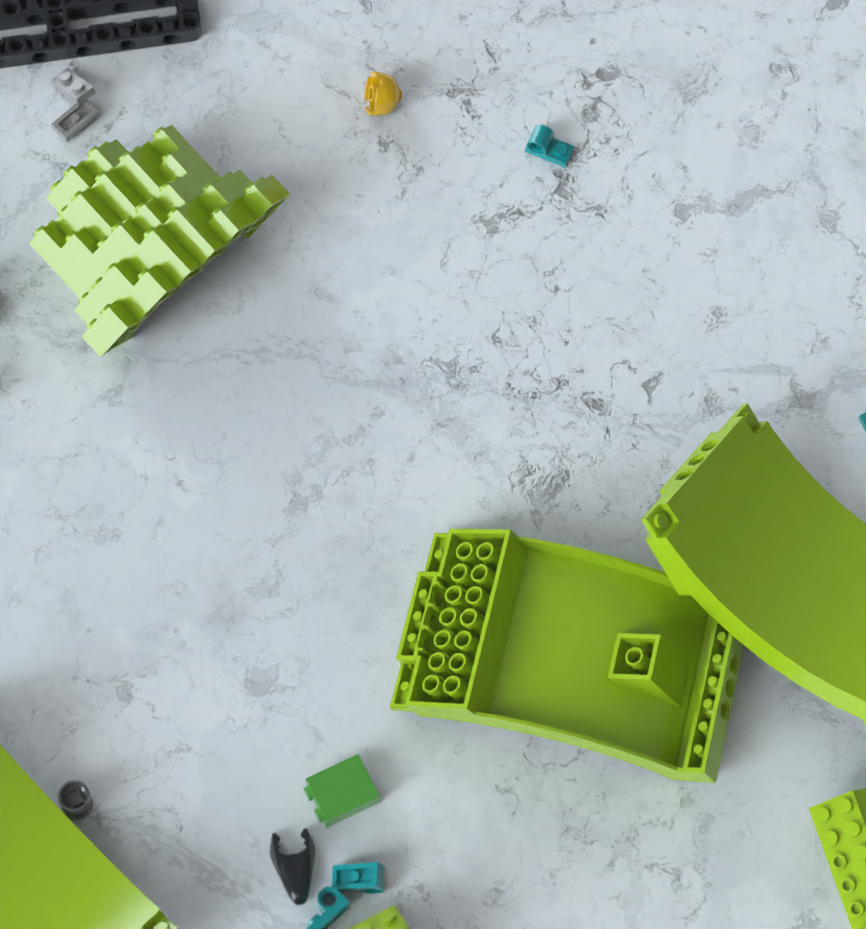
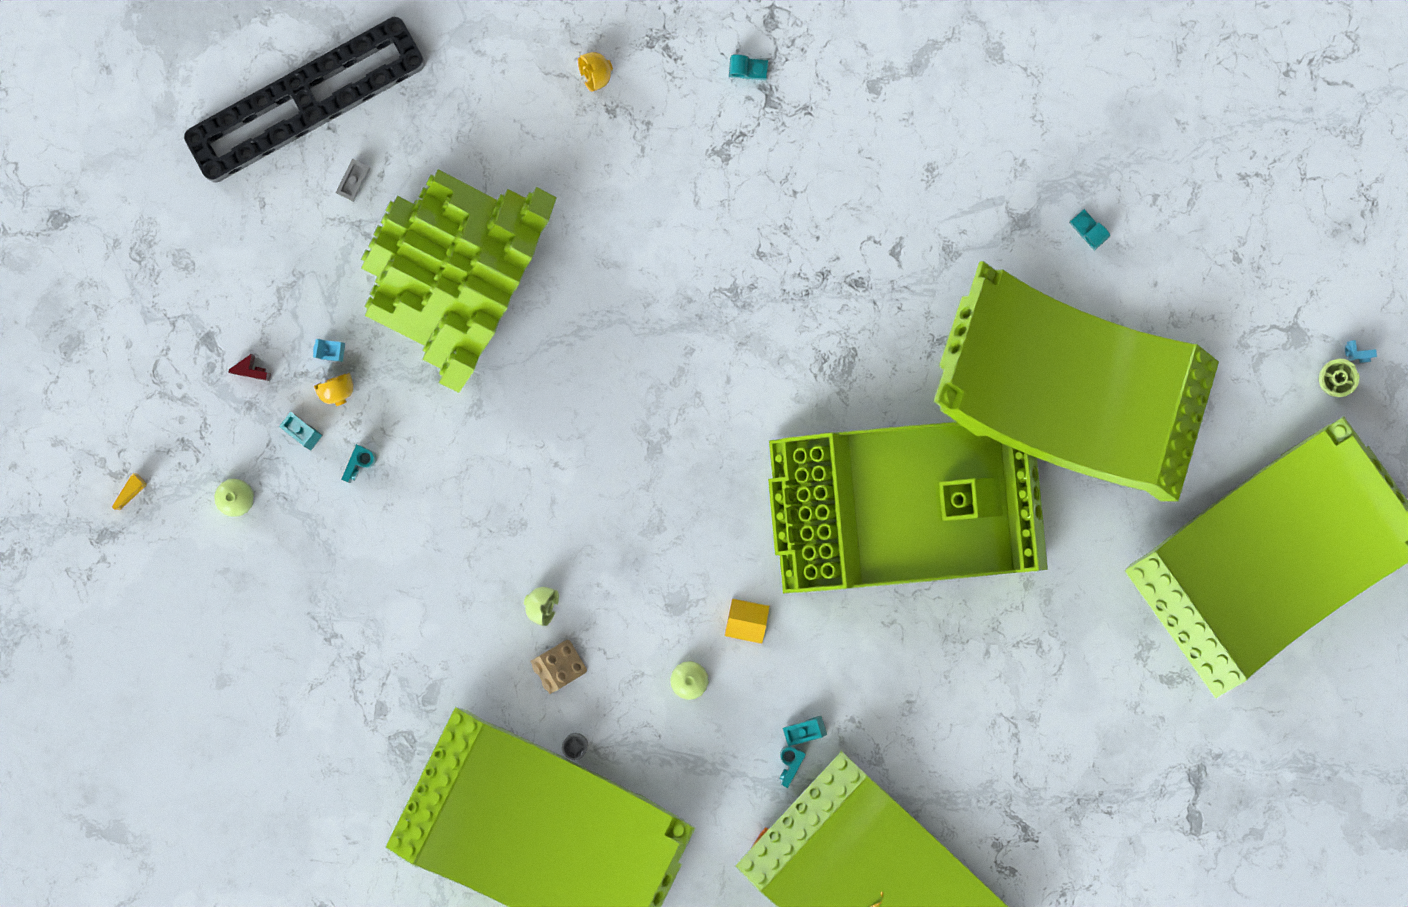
camera: 10 degrees left, 20 degrees up
(73, 86) = (340, 151): light grey plate -> none
(92, 703) = (558, 666): none -> tan bracket
(100, 625) = (540, 605): none -> yellowish green cylinder
(241, 773) = (689, 680): none -> yellowish green cylinder
(294, 869) = (755, 740): black animal -> none
(334, 728) = (747, 621): none -> yellow slope
(341, 791) = (769, 670): bright green brick -> none

